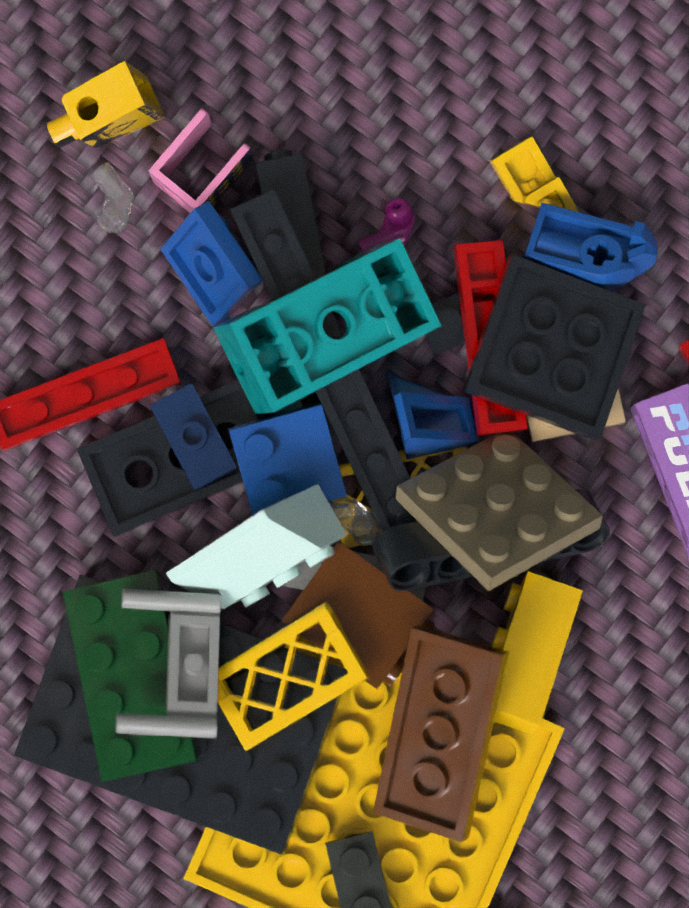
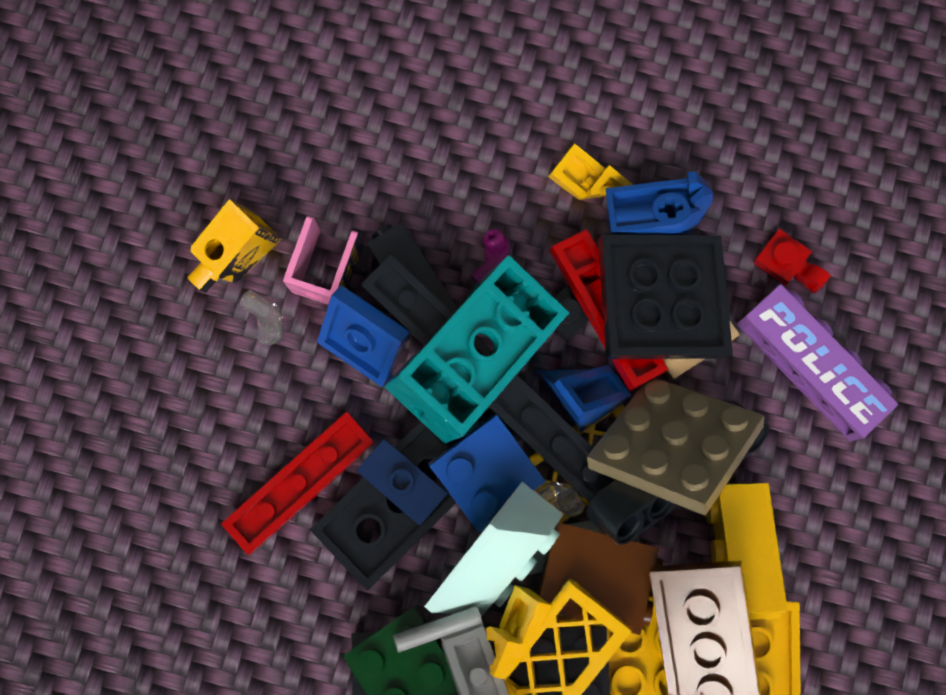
camera: 25 degrees left, 5 degrees down
(252, 634) = (517, 630): none -> yellow slope

